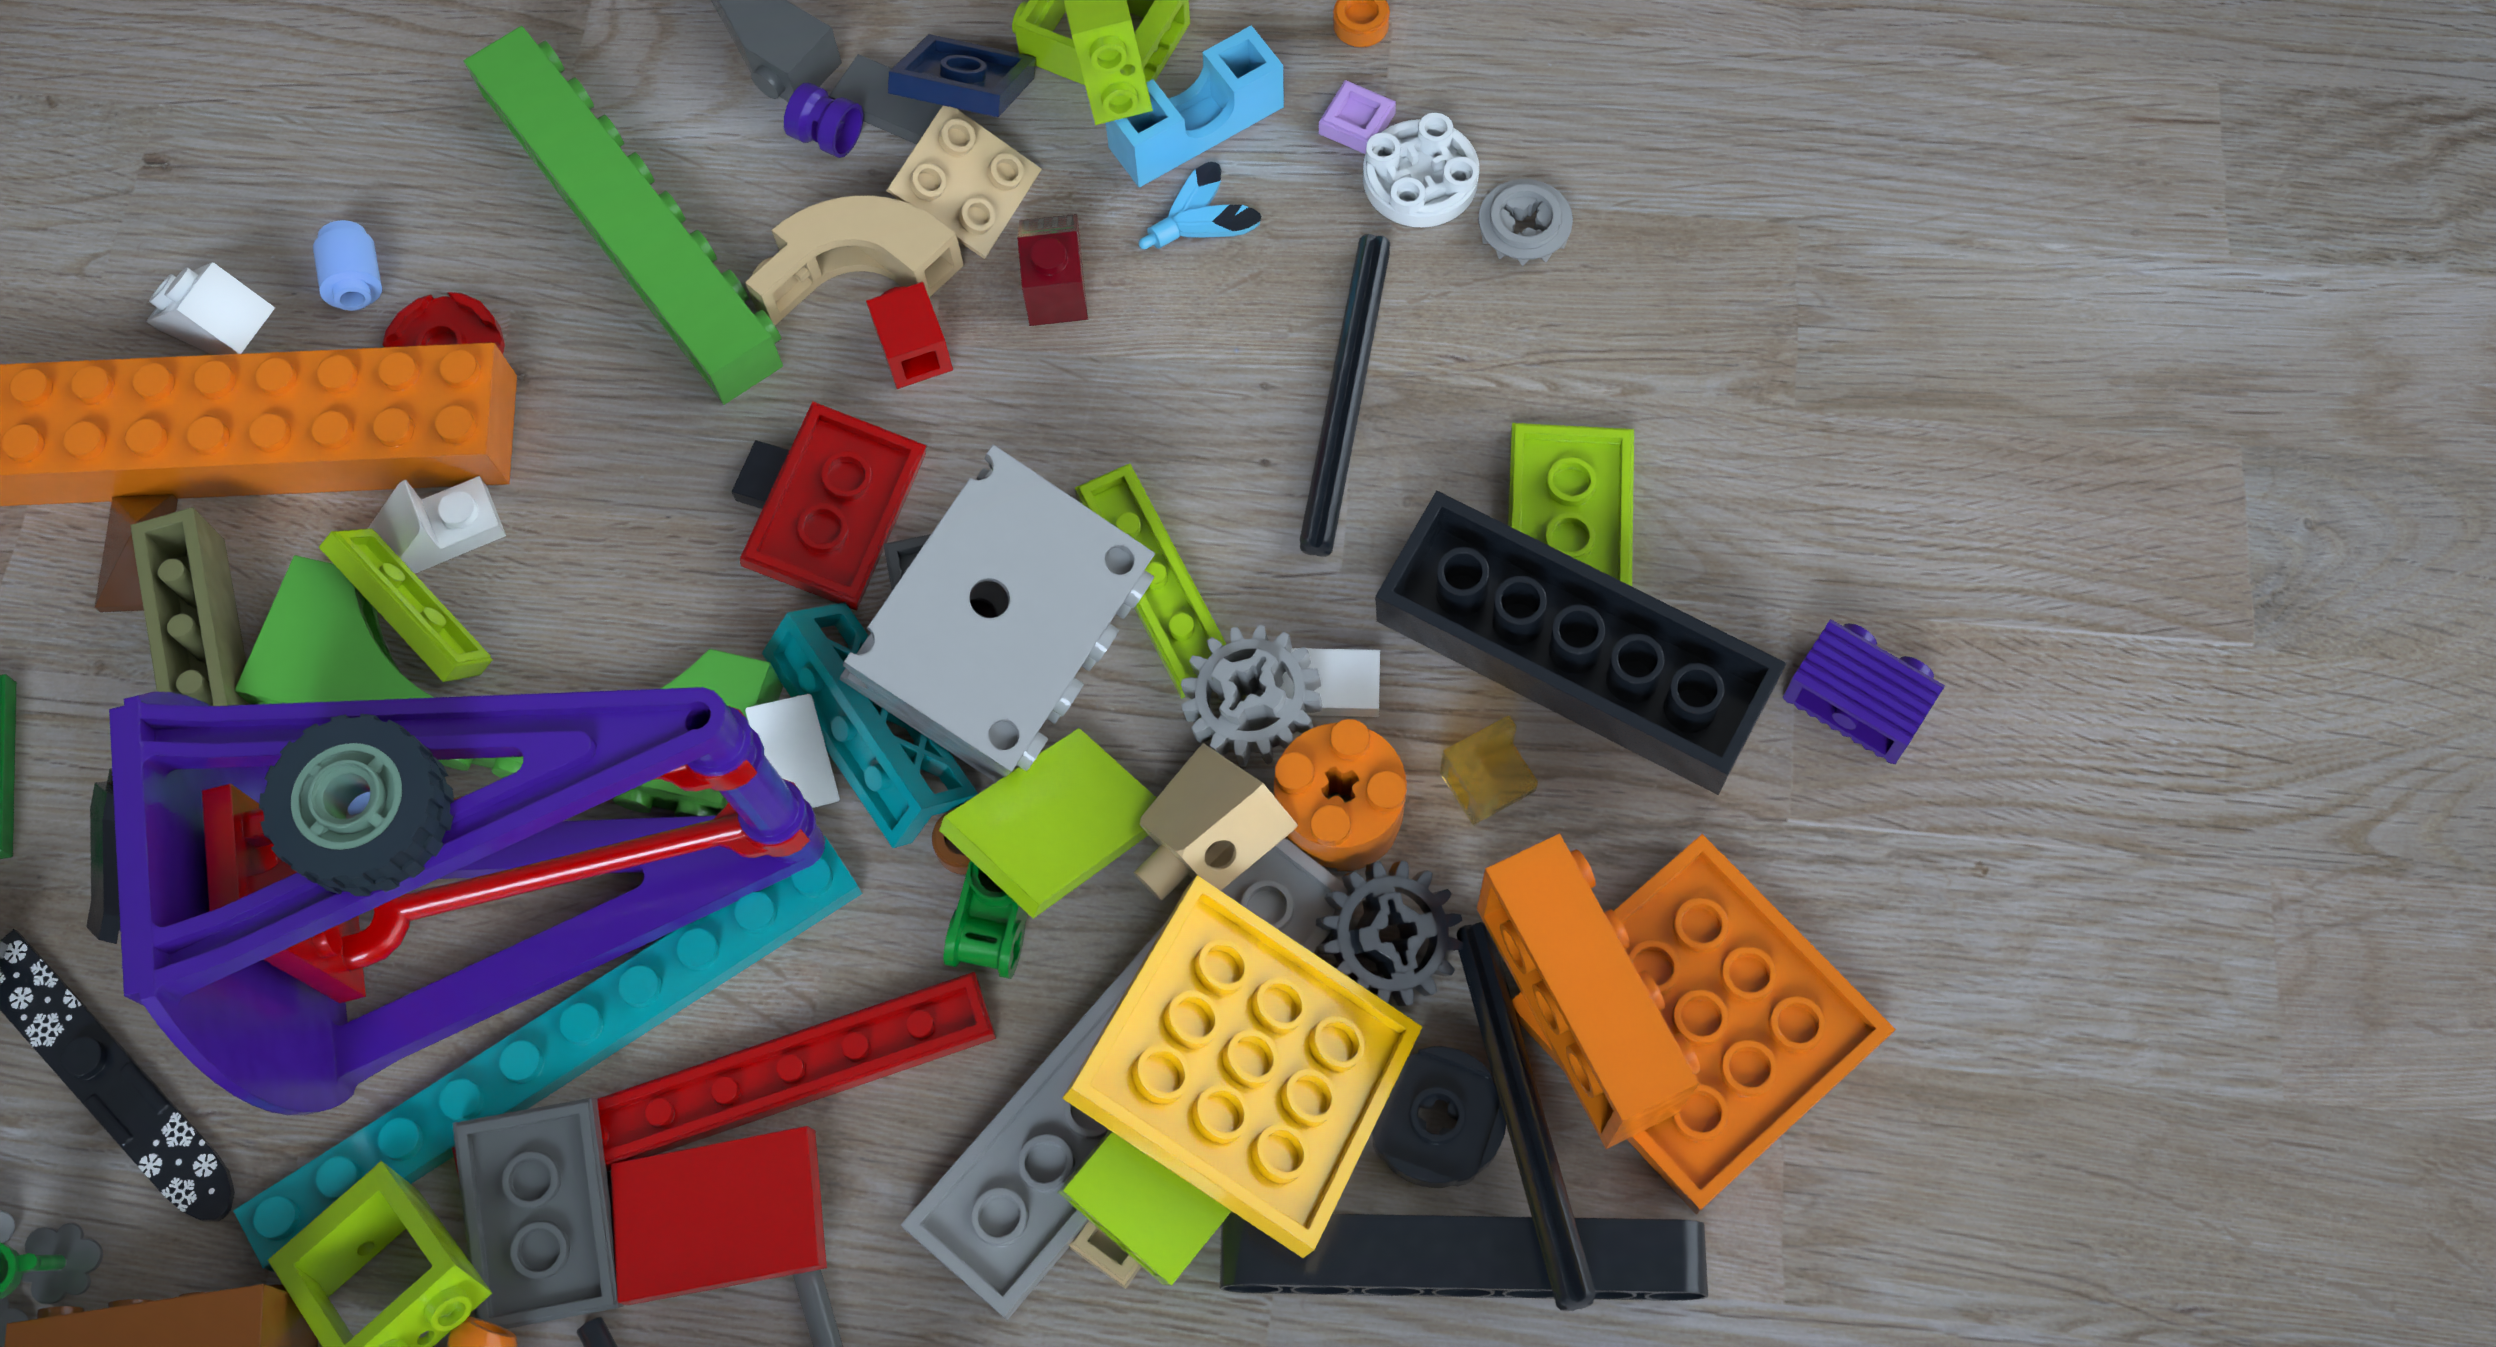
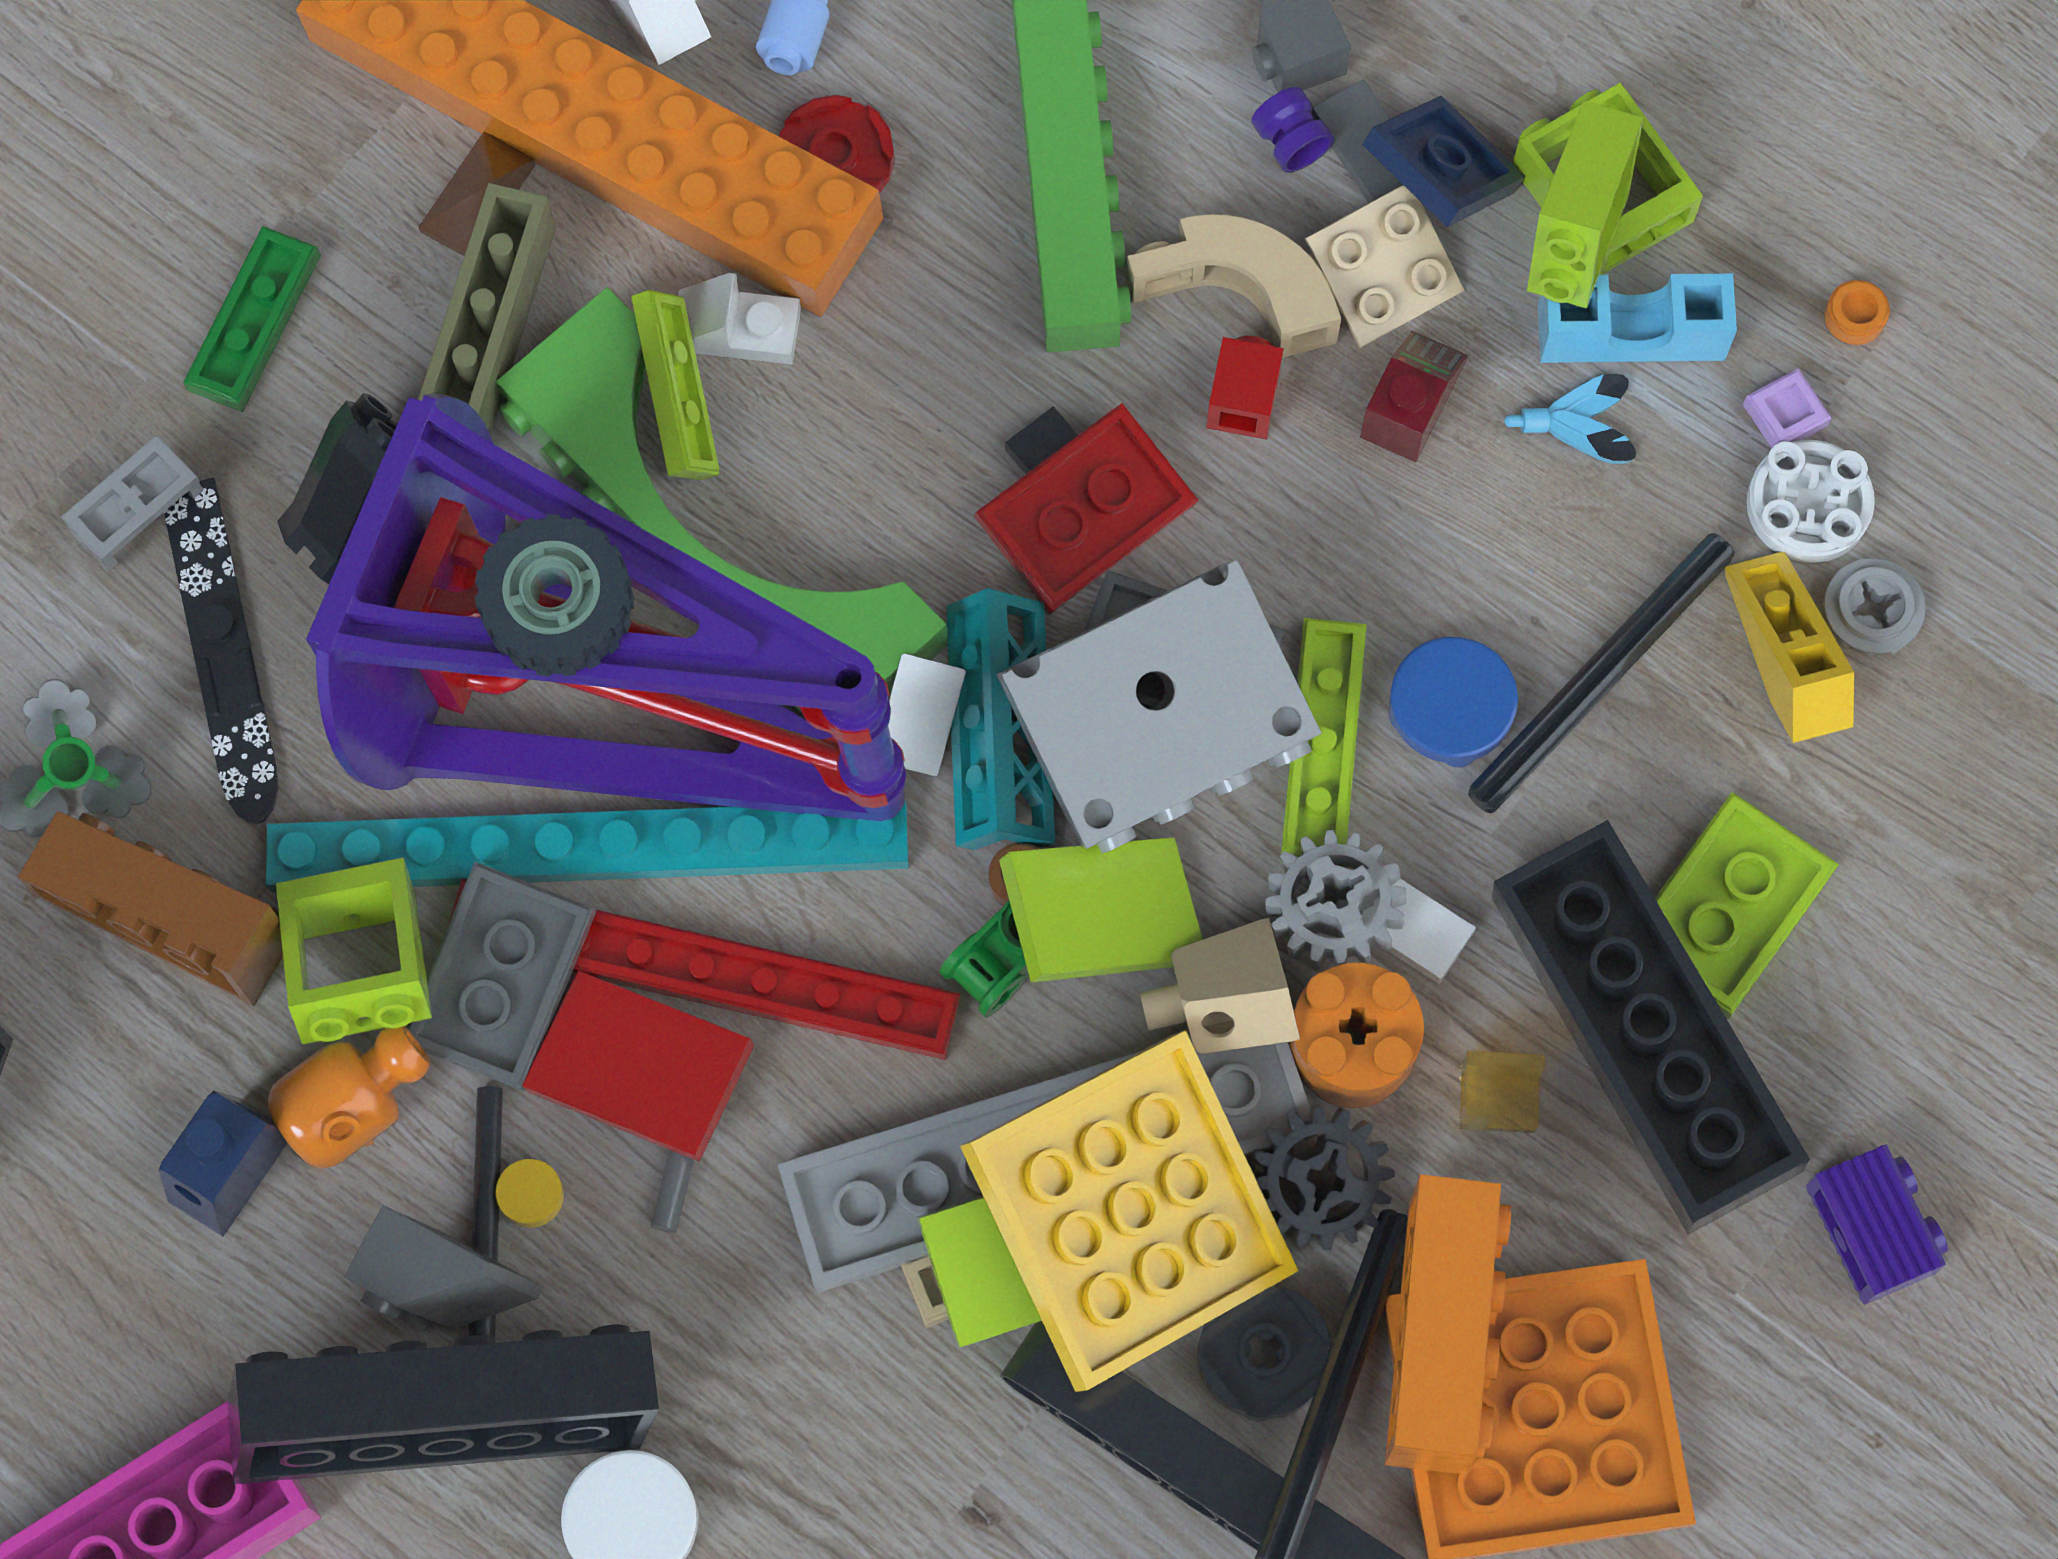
camera: 30 degrees right, 5 degrees up
(1240, 481) = (1453, 700): none -> blue tile
(1487, 284) = (1793, 648): none -> yellow slope

